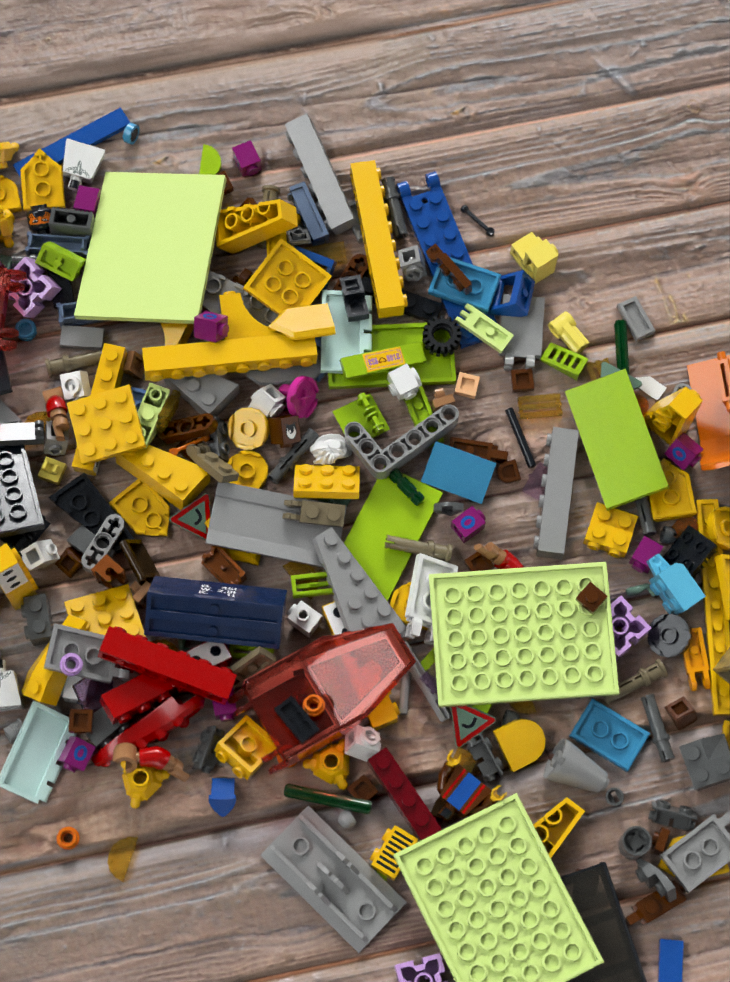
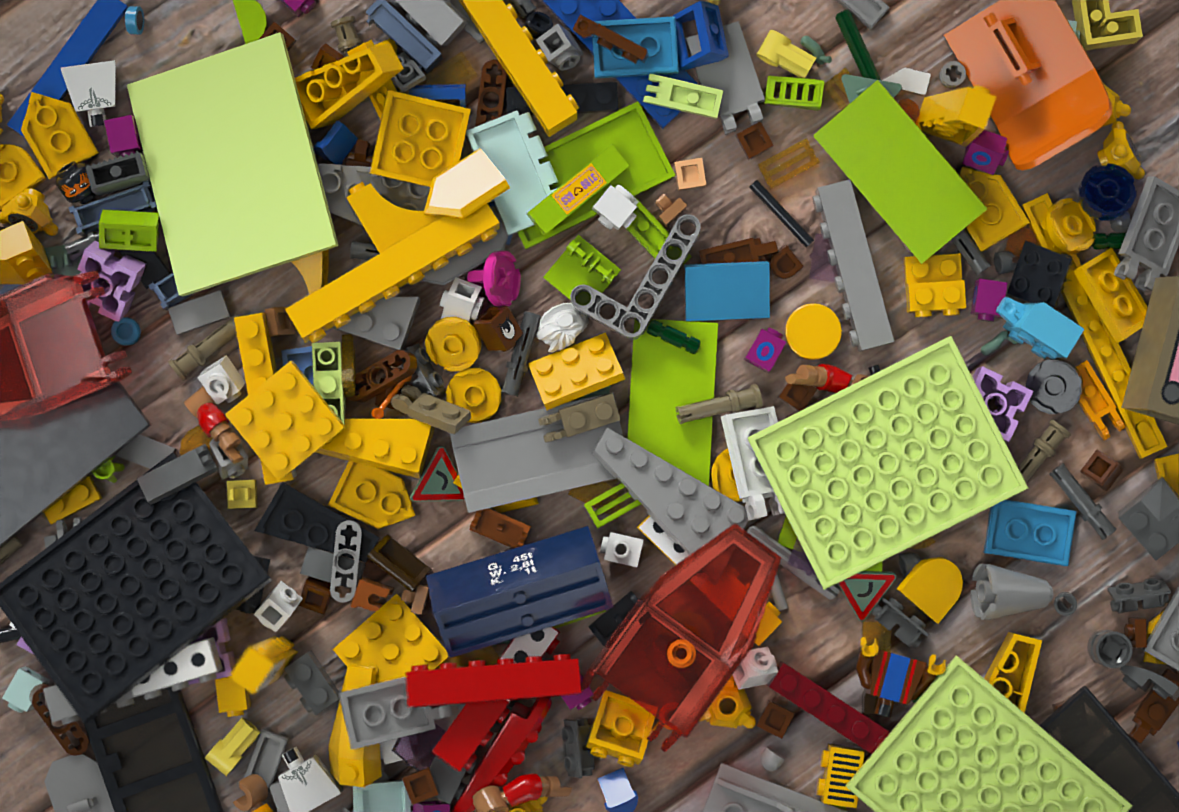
camera: 20 degrees left, 15 degrees up
(74, 658) = (391, 733): lavender plate -> none
(211, 326) = (355, 244): magenta brick -> none
(229, 264) = (336, 144): none -> blue tile
(251, 664) = (587, 636): dark tan hinge -> none
(296, 720) = (670, 680): black plate -> none
(328, 798) = (740, 747): dark green axle -> none
(354, 298) = (510, 126): black slope -> none
(403, 242) = (538, 24): none -> black tile
(445, 324) = (629, 143): black tyre -> none
(448, 508) = (733, 341): dark grey tile -> none
(508, 526) = (813, 331): none -> yellow tile
(591, 338) = (815, 49): none -> sand green piece
(591, 597) = (951, 388): reddish brown plate -> none

